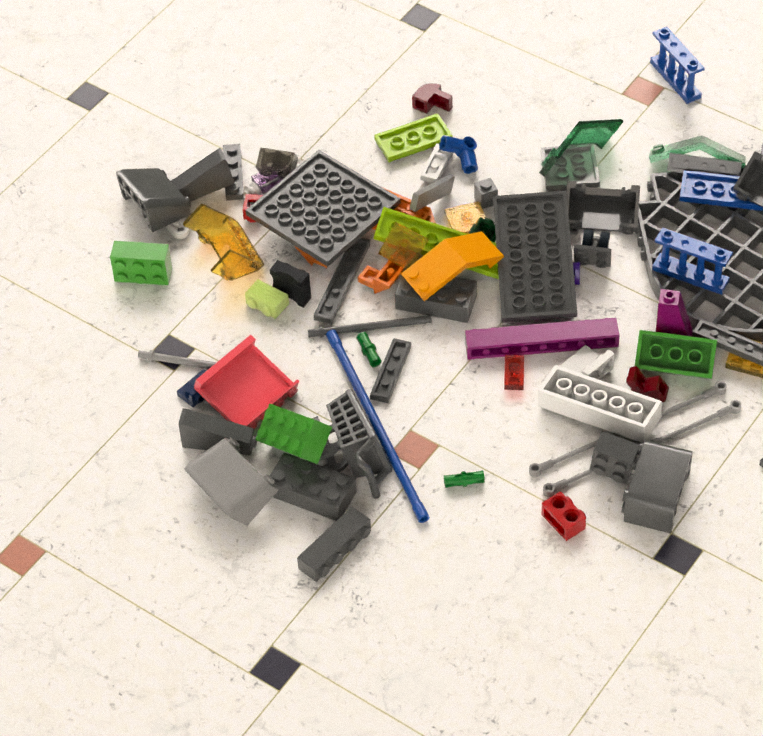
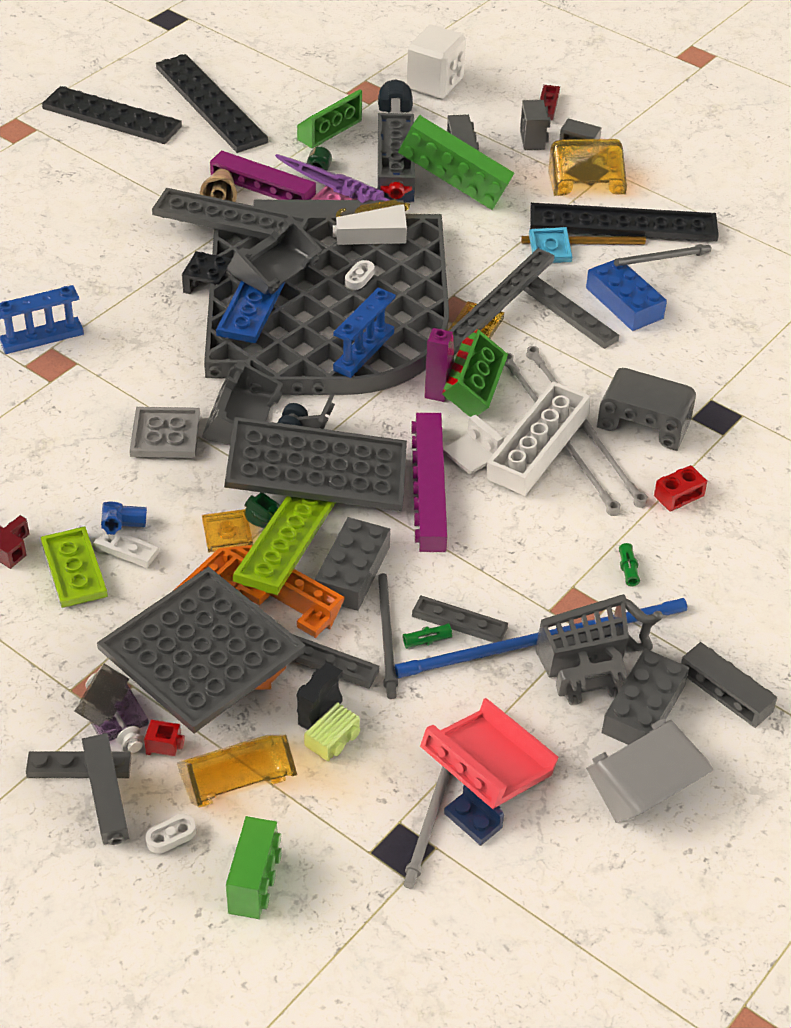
camera: 90 degrees left, 5 degrees down
(154, 196) = (119, 848): dark grey windscreen -> none
(204, 431) = (564, 794): dark grey slope -> none
(293, 433) = (590, 693): bright green brick -> none
(403, 246) = (298, 565): clear yellow plate -> none
(432, 193) = (196, 542): light grey tile -> none
(448, 261) = (333, 527): light orange windscreen -> none
(484, 192) = (193, 504): dark grey brick -> none
(514, 372) = (476, 509): clear red plate -> none
(585, 132) = (149, 413): clear green windscreen -> none
(614, 457) = (619, 430): dark grey brick -> none
(652, 387) = (511, 405): dark red brick -> none
(681, 162) = (211, 315): plate -> none
(701, 143) = (176, 327): clear green windscreen -> none

